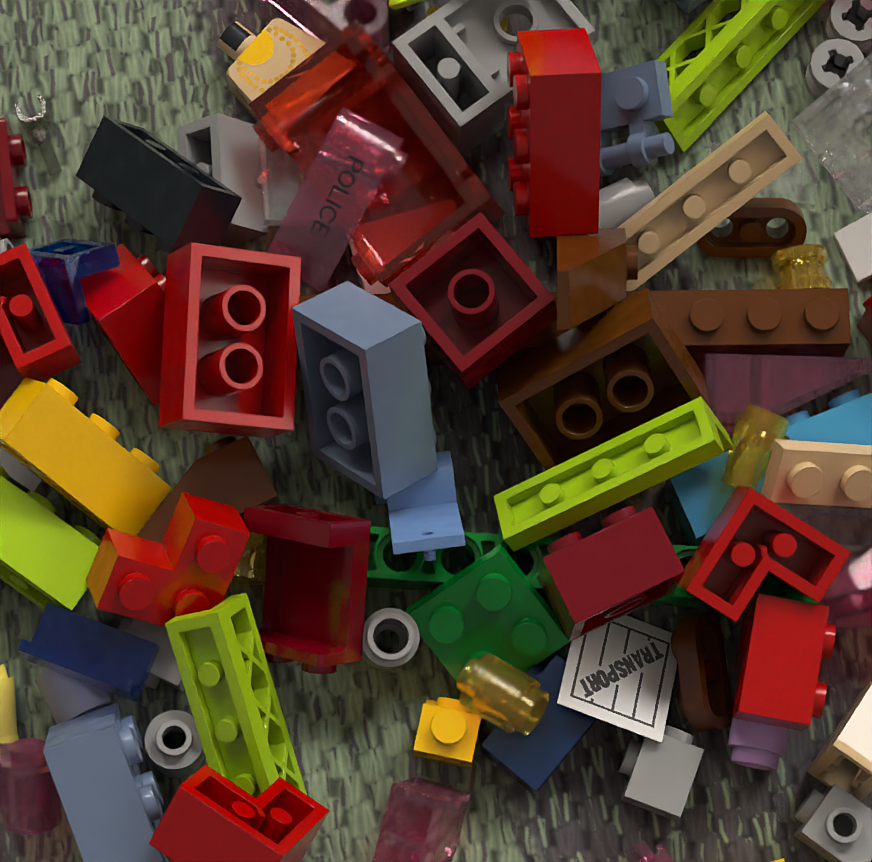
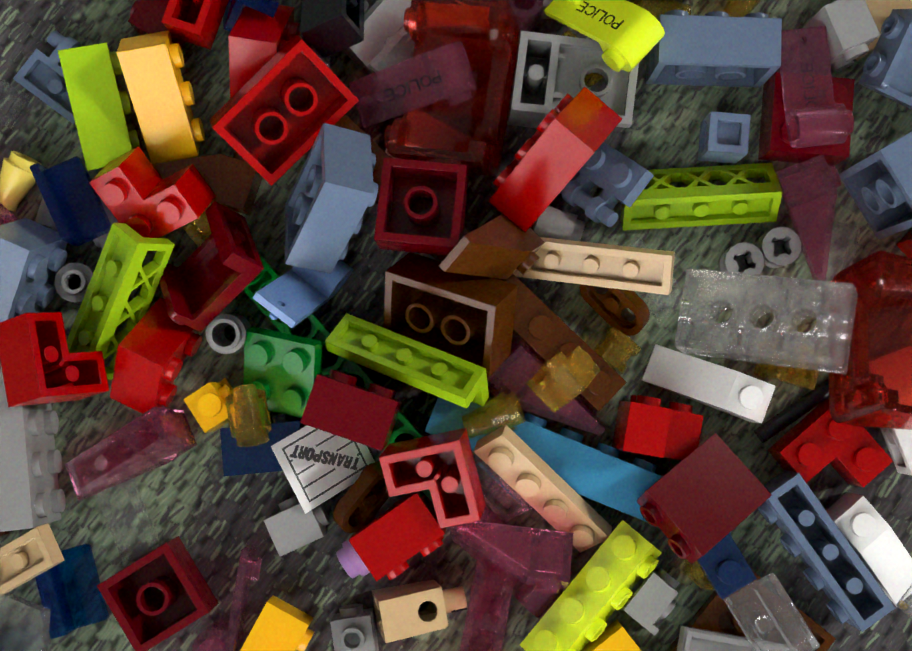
camera: 45 degrees right, 10 degrees up
(338, 744) = (151, 360): none -> red brick
(784, 336) = (563, 378): none -> clear yellow brick

